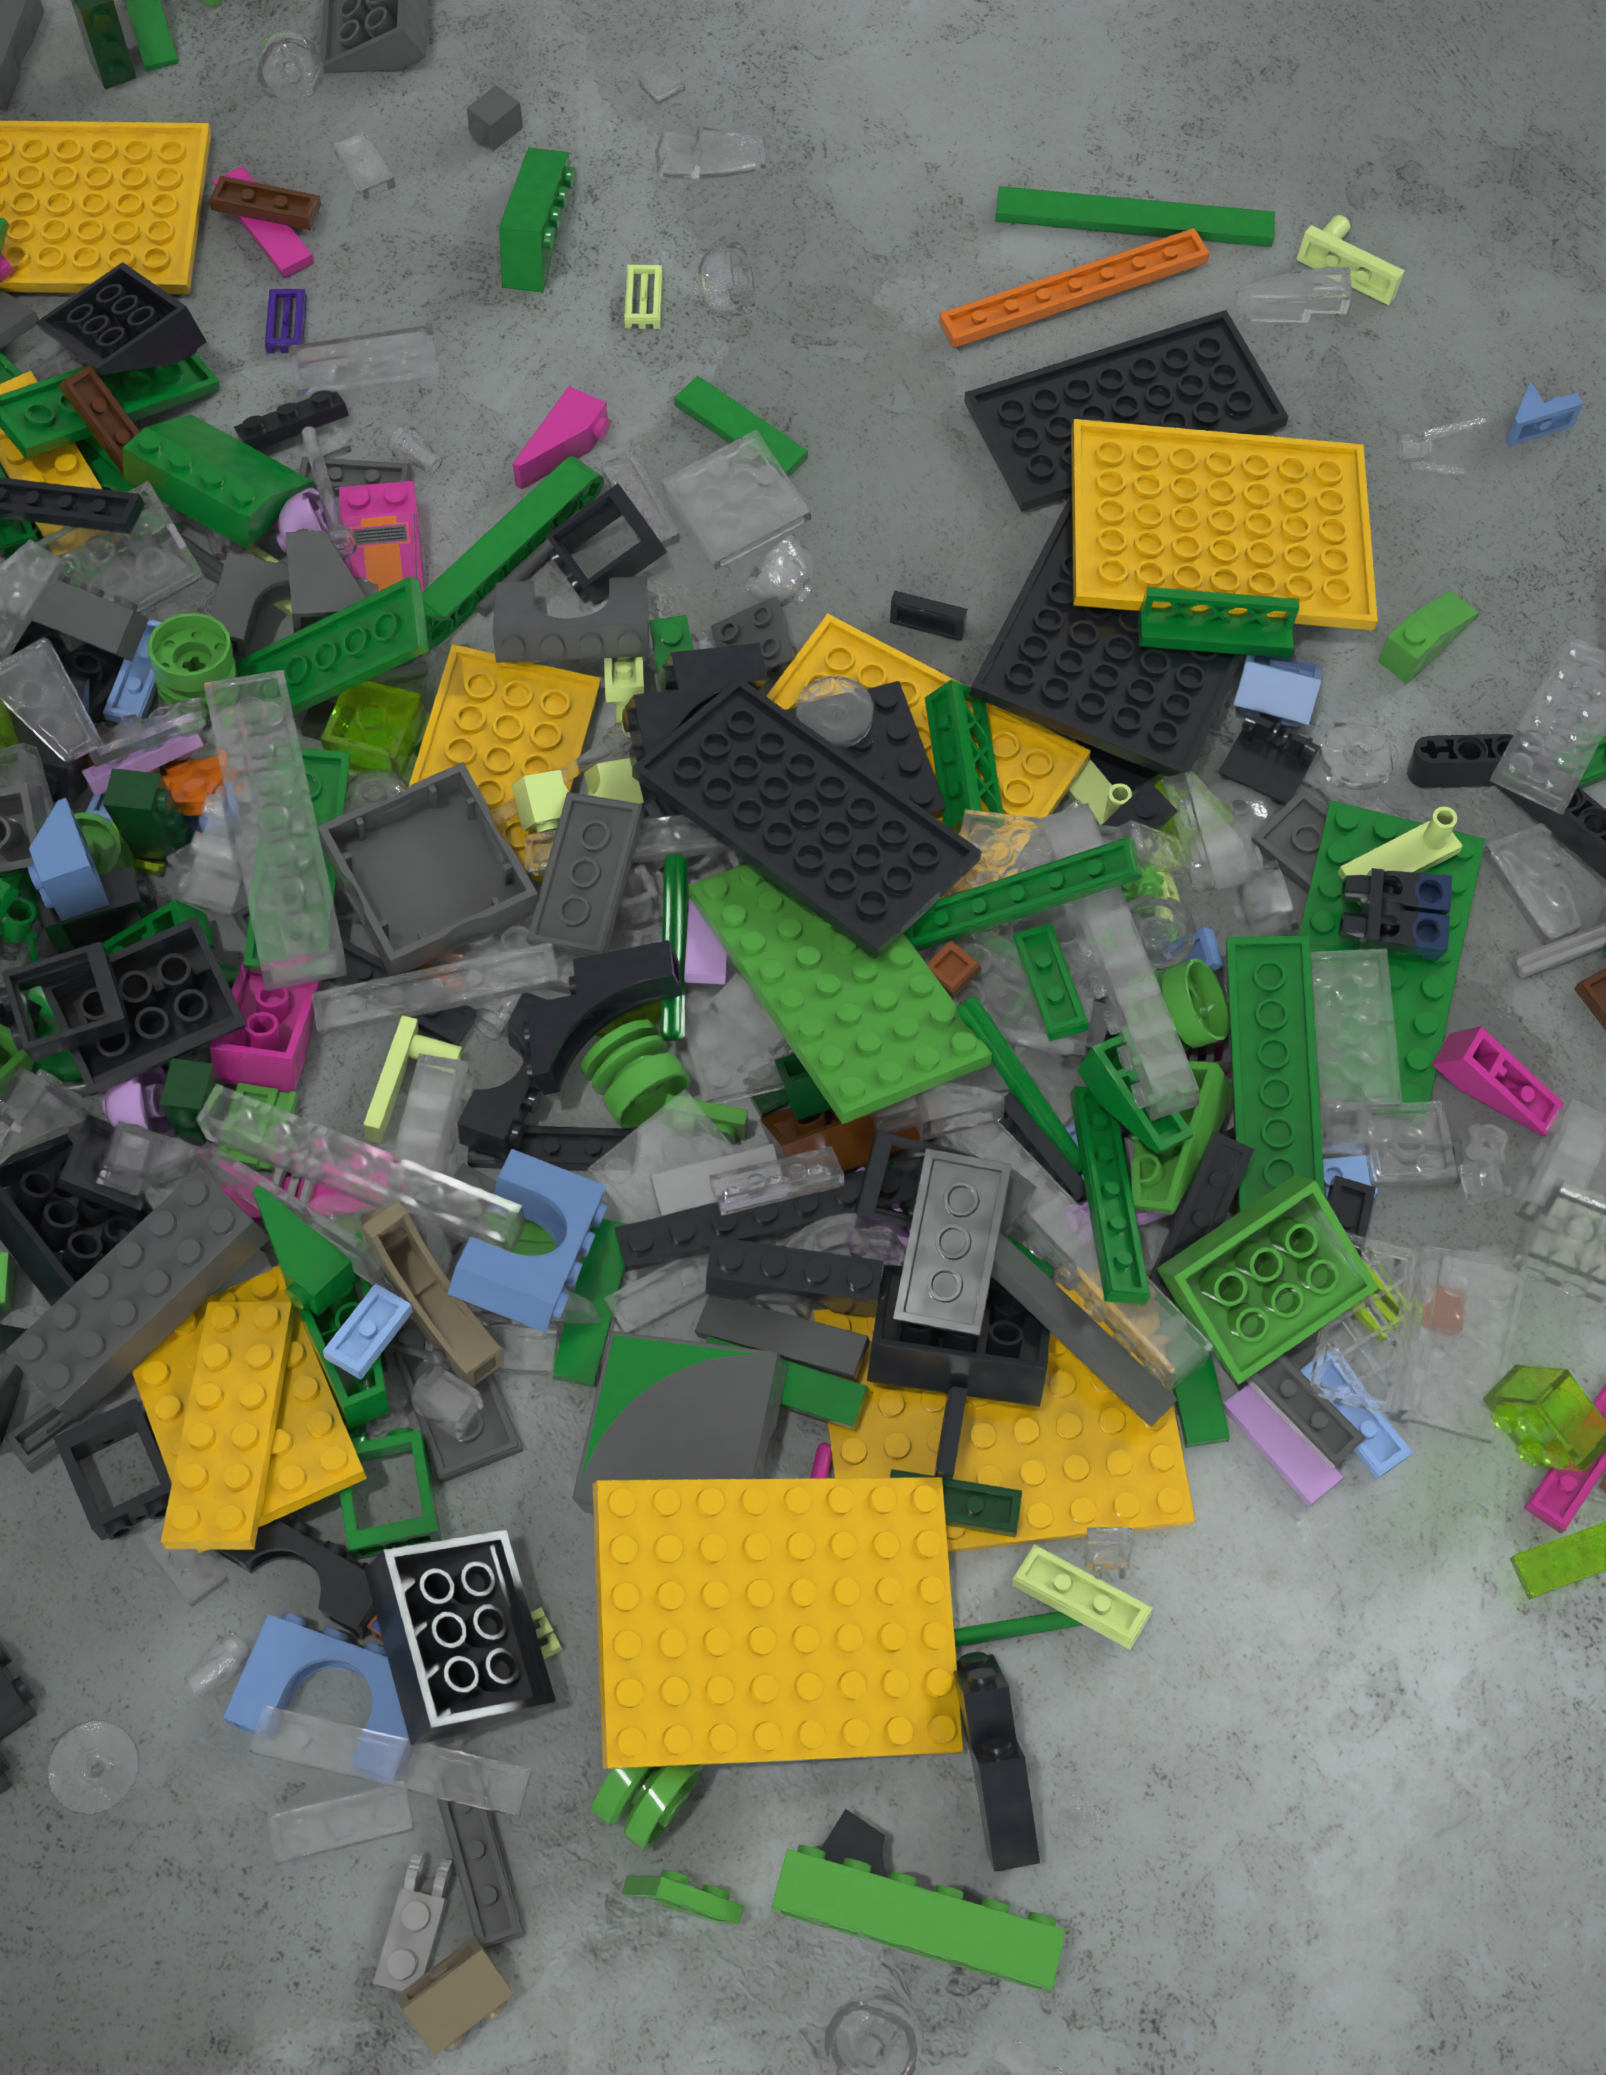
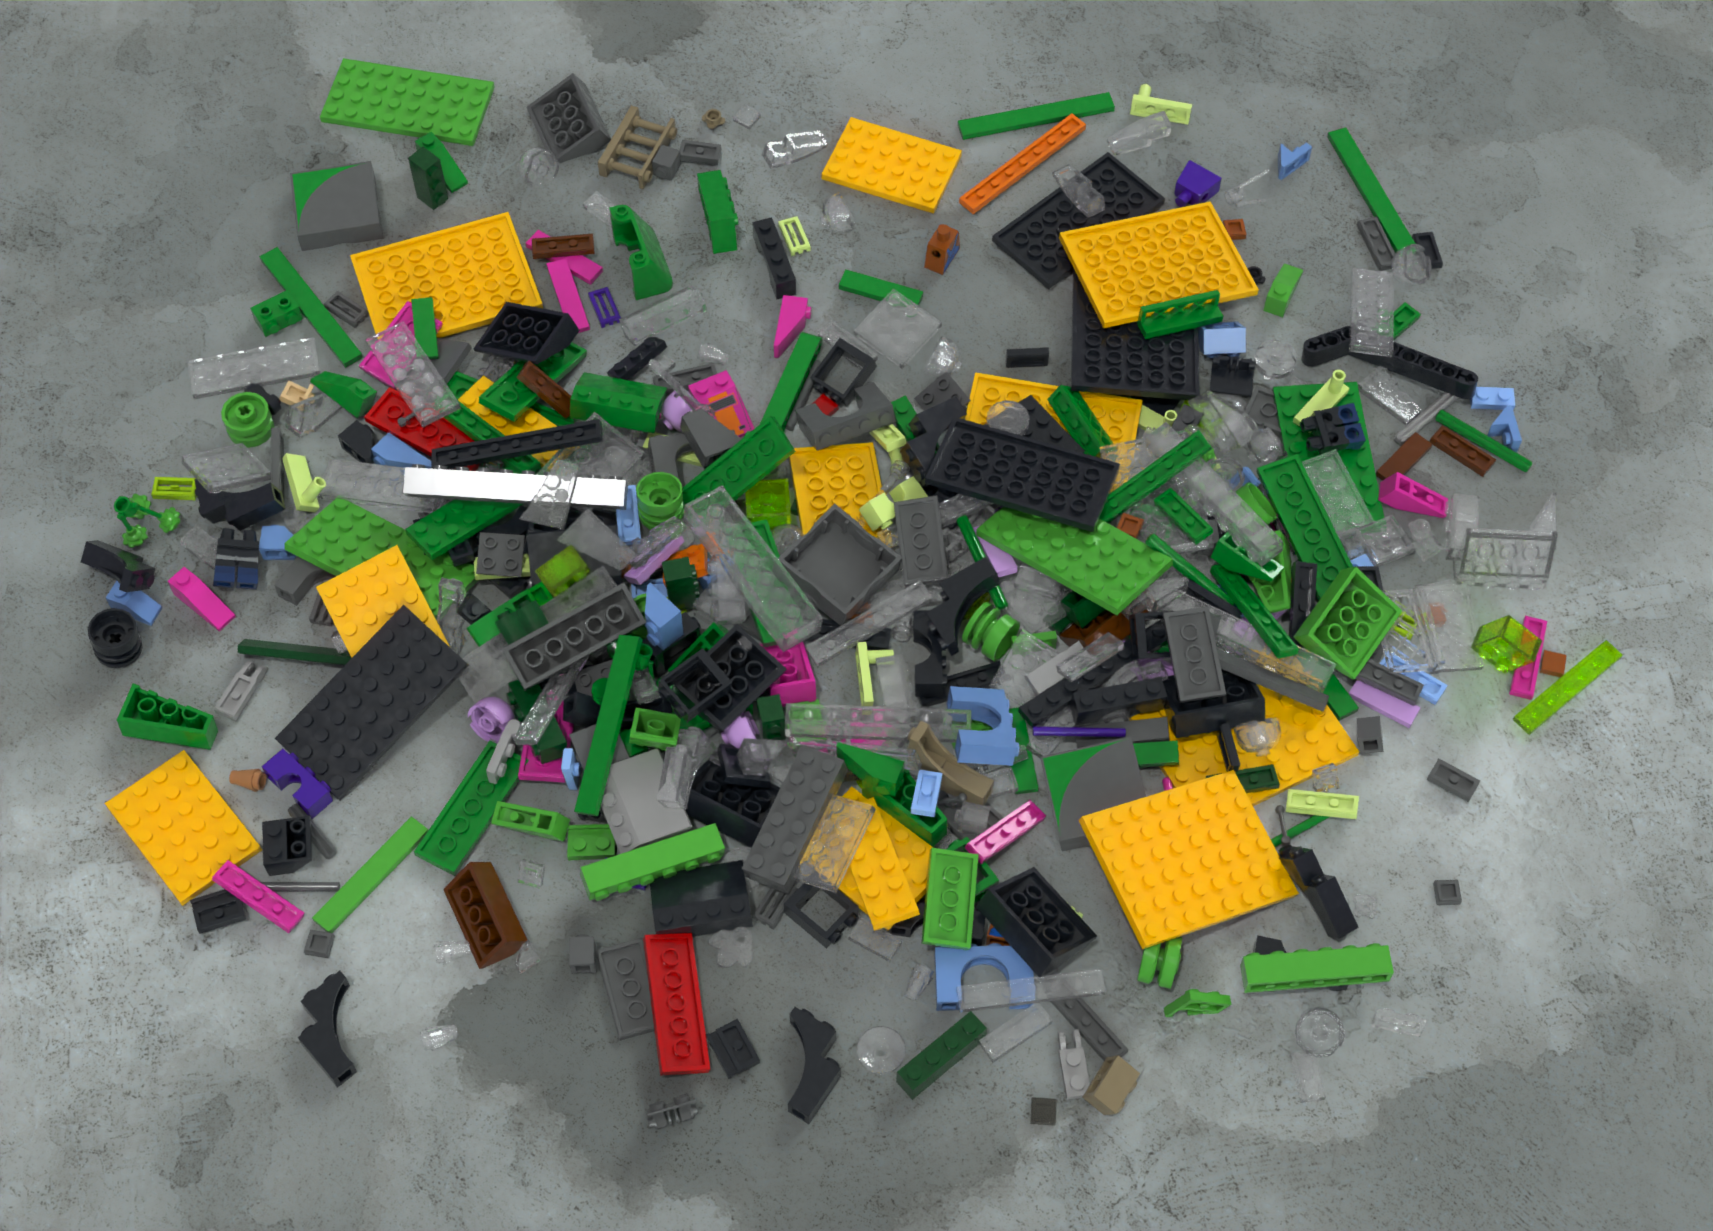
camera: 20 degrees left, 5 degrees down
(178, 1363) = (834, 843): none -> clear plate
(187, 1819) = (941, 1055): none -> dark green brick
(234, 286) = (567, 292): none -> dark pink tile
(320, 1993) = (1043, 1111): none -> clear smoke tile
(322, 1539) = (950, 899): none -> bright green plate
(380, 273) = (648, 264): none -> green windscreen
(443, 58) = (625, 134): none -> dark tan fence
(492, 1444) = (1005, 831): none -> tile
(554, 594) = (826, 405): none -> red tile
(557, 117) = (700, 152): none -> dark grey plate
(586, 321) = (778, 265): none -> black arch
(605, 70) = (713, 118): none -> dark tan plate
(702, 1308) = (1079, 731): none -> dark purple bar
(858, 228) = (891, 165): none -> yellow plate
(869, 388) = (945, 242): none -> dark orange torso
(983, 1640) = (1285, 840): none -> dark grey hinge
(1013, 1432) = (1258, 736): none -> clear cylinder
(1144, 359) = (1079, 190): none -> clear slope
(1224, 1497) = (1370, 735): none -> dark grey brick
(1242, 1851) = (1447, 892): none -> dark grey tile
(1345, 1638) = (1453, 780): none -> dark grey plate
(1352, 410) = (1196, 185): none -> dark purple torso
(1388, 506) = (1235, 229): none -> dark orange tile
(1392, 591) = (1257, 273): none -> black plate
(1516, 1003) = (1405, 457): none -> reddish brown tile

